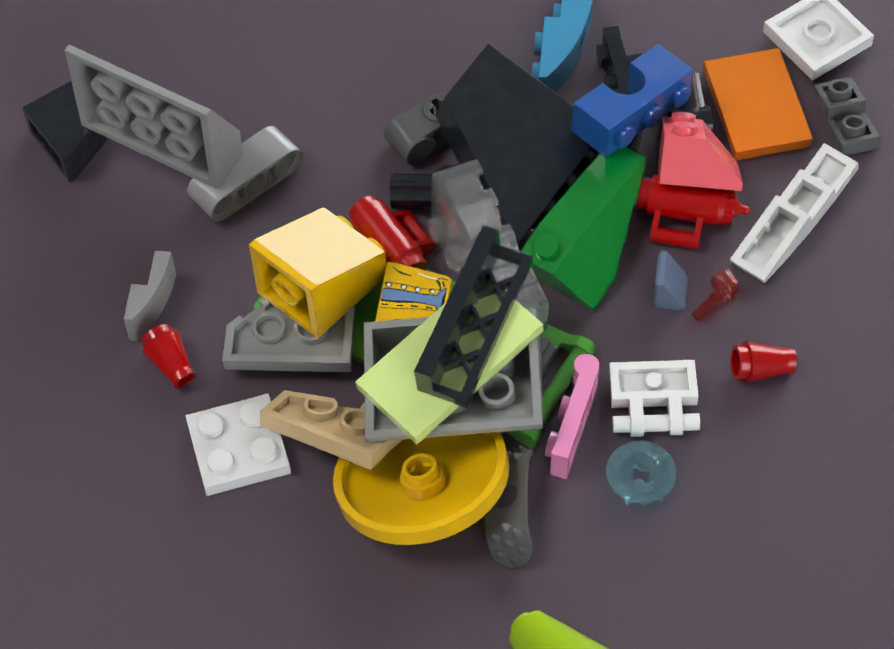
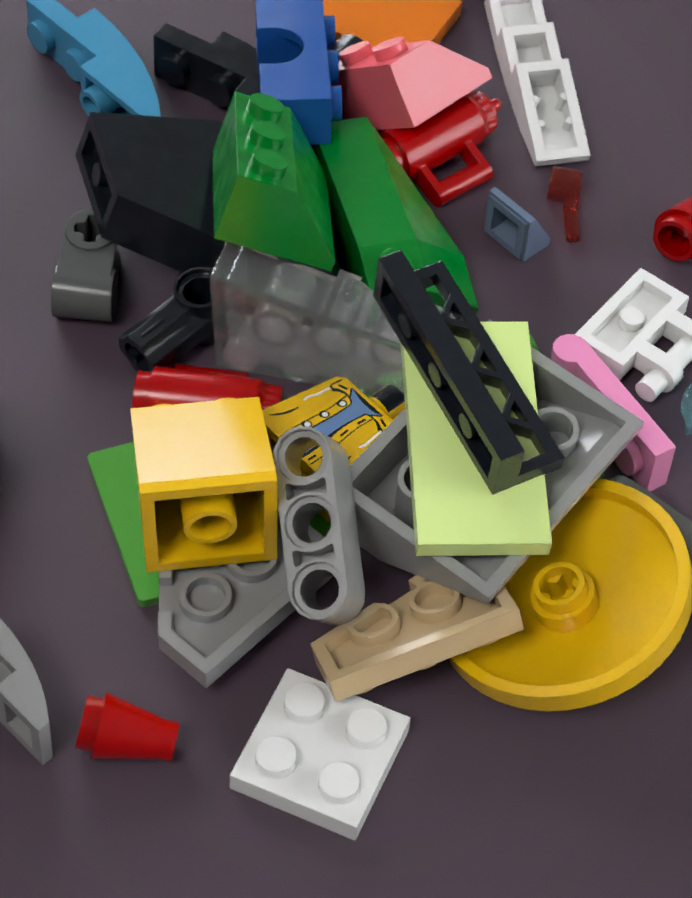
camera: 55 degrees left, 5 degrees down
(330, 334) = (298, 502): none -> light grey beam
(525, 153) = (270, 184): none -> green slope

